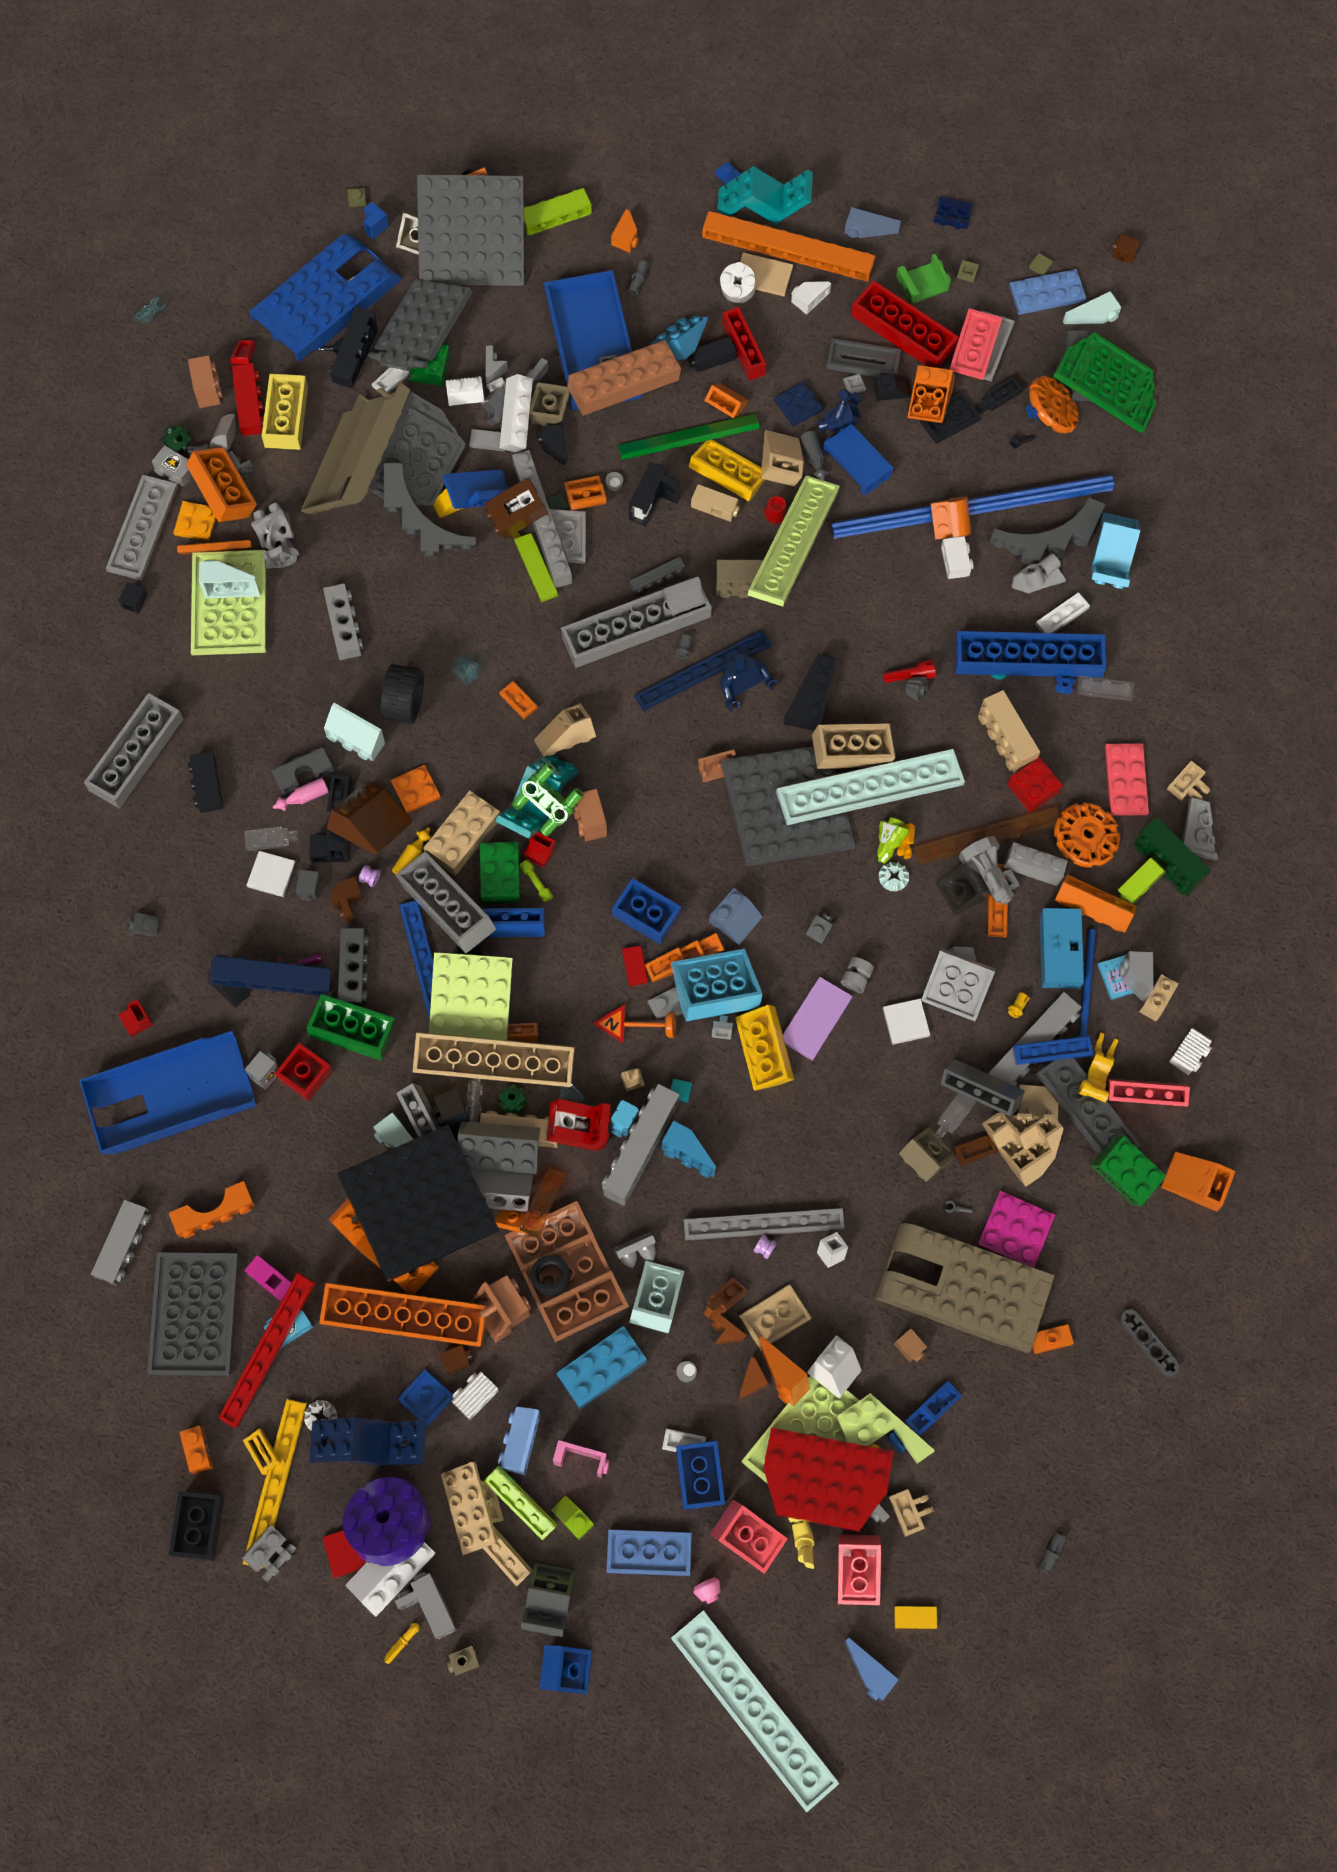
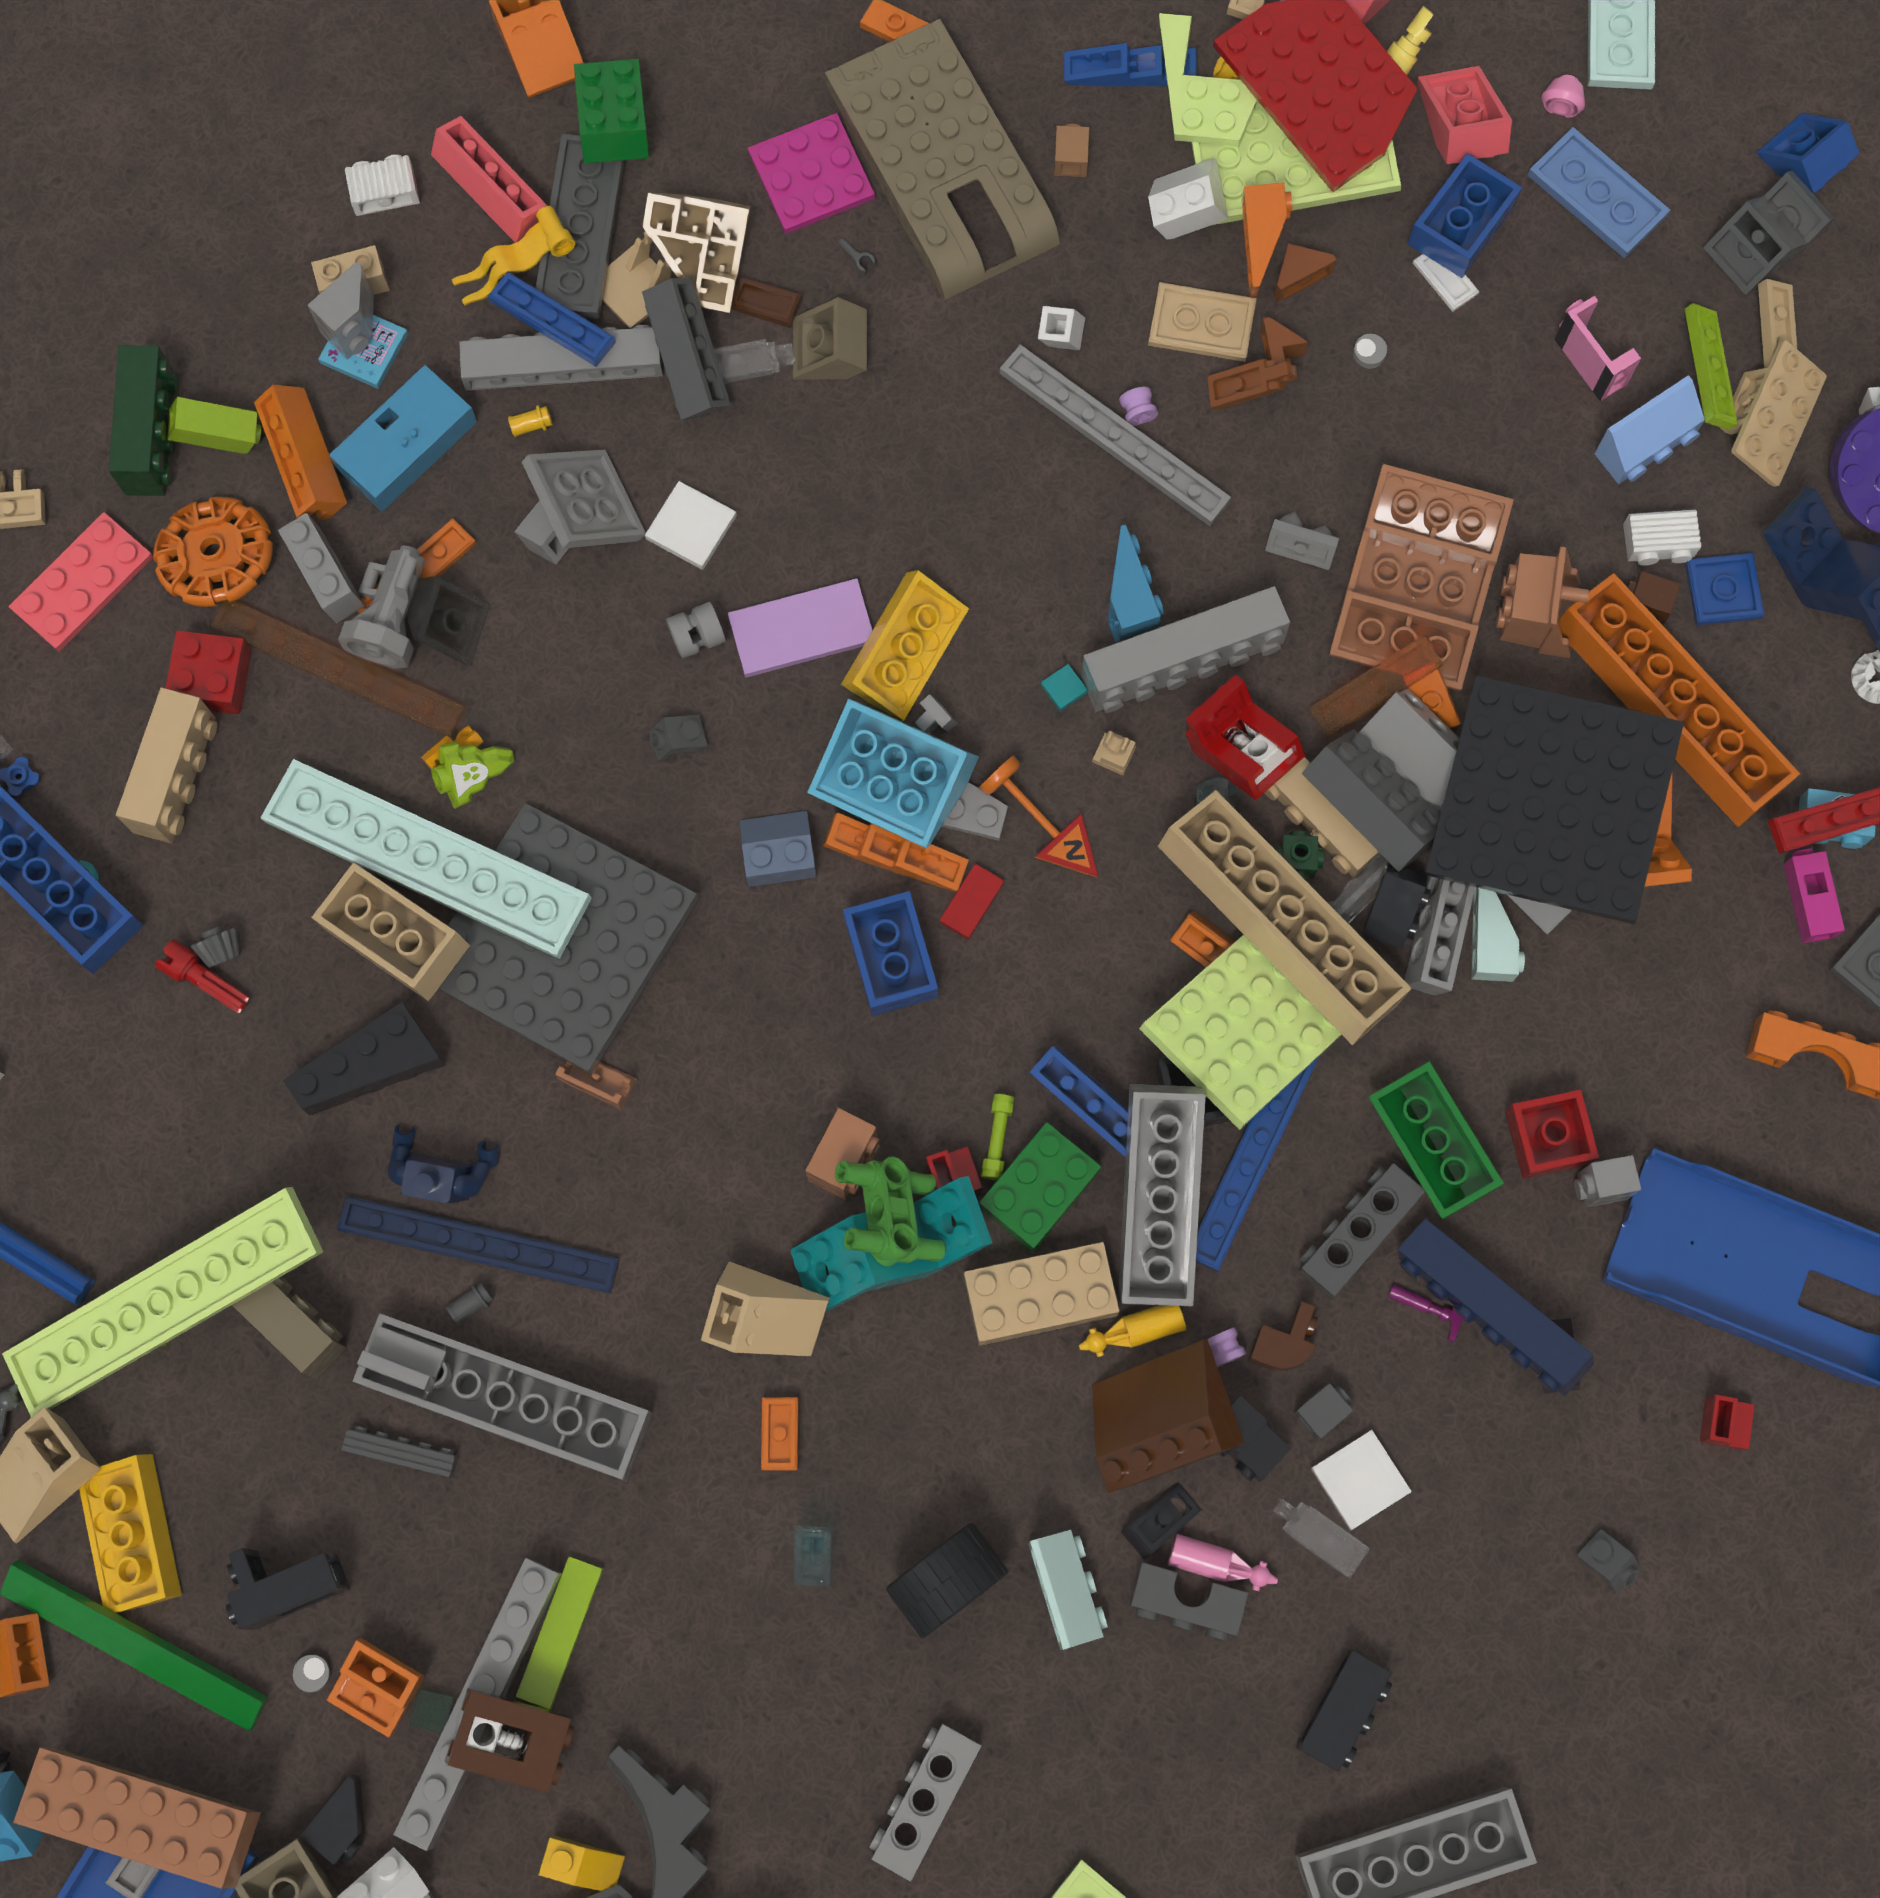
camera: 135 degrees left, 5 degrees up
(415, 789) = (1046, 1428): orange plate -> none
(474, 488) = (532, 1835): blue bracket -> none
(557, 1288) = (1462, 562): black tyre -> none
(572, 533) = (456, 1638): light grey wing -> none
(572, 1517) = (1659, 300): lime slope -> none
(601, 1367) = (1475, 435): dark azure brick -> none
(623, 1119) = (1176, 699): medium azure brick -> none
(657, 1296) = (1328, 461): light aqua slope -> none
(715, 503) = (205, 1492): tan brick -> none
(775, 510) = (131, 1399): red piece -> none
(893, 884) = (525, 733): light aqua gear -> none
(1087, 983) = (491, 319): blue bar -> none
(1198, 829) = (67, 436): light grey wing -> none

